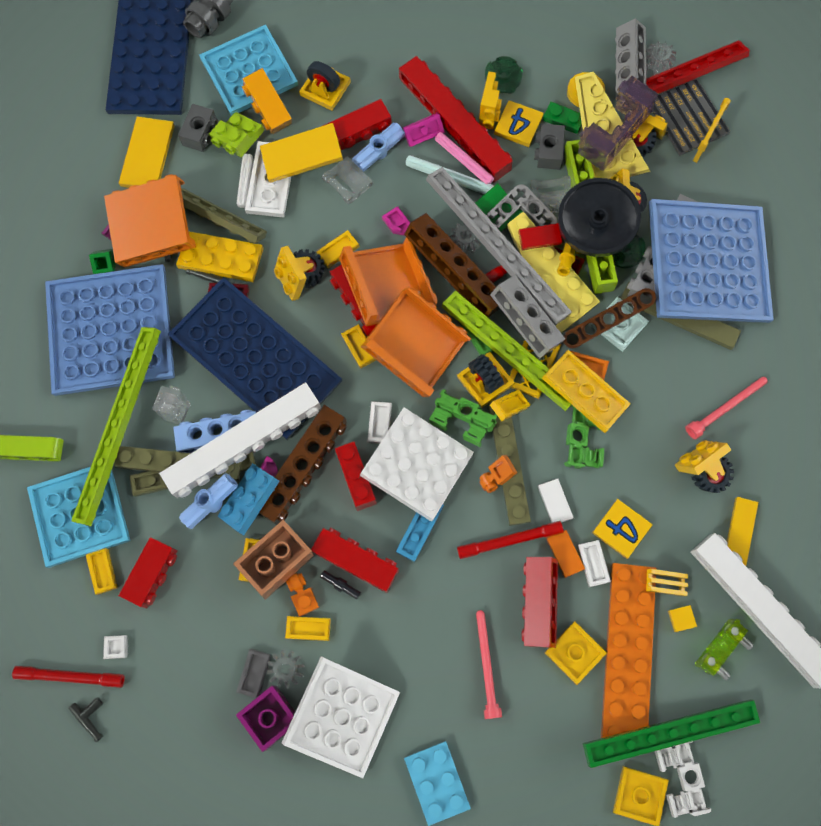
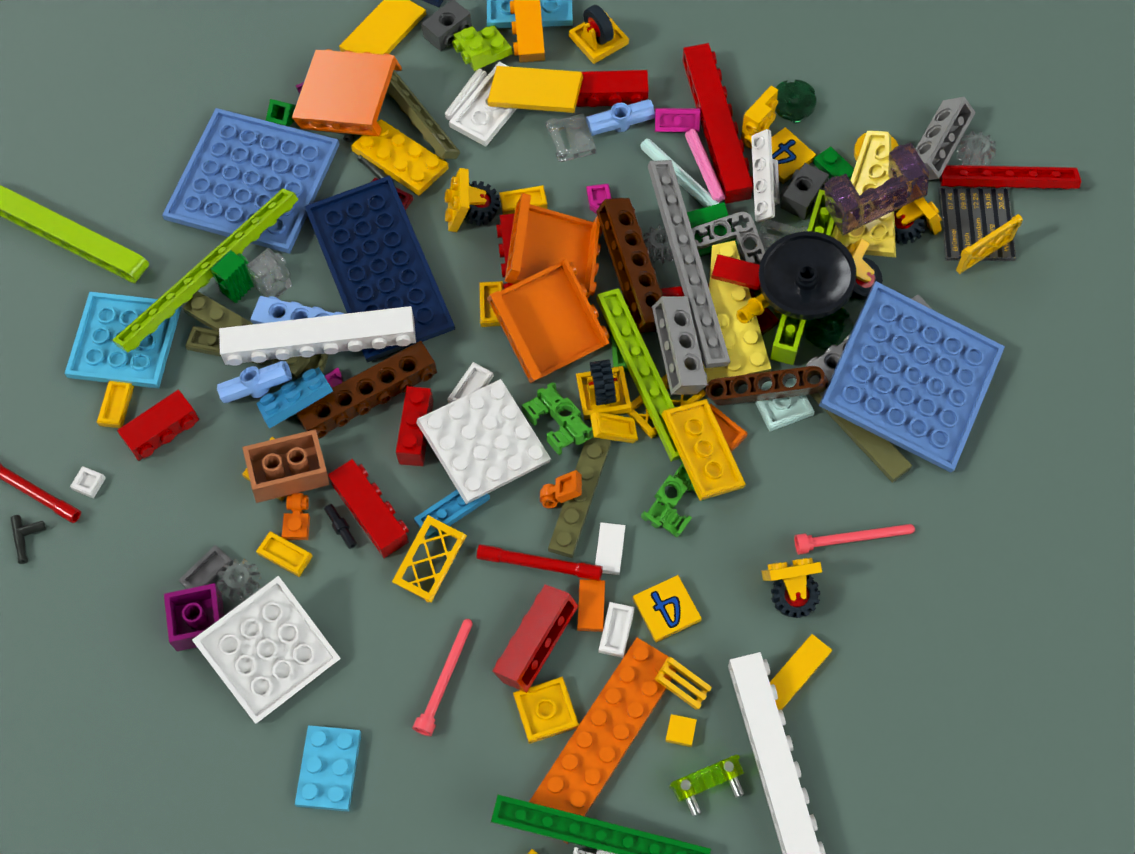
camera: 25 degrees right, 10 degrees down
(141, 420) = (233, 276): none -> green brick
(410, 589) = (419, 540): none -> yellow window
(517, 148) = (764, 176): none -> white bracket

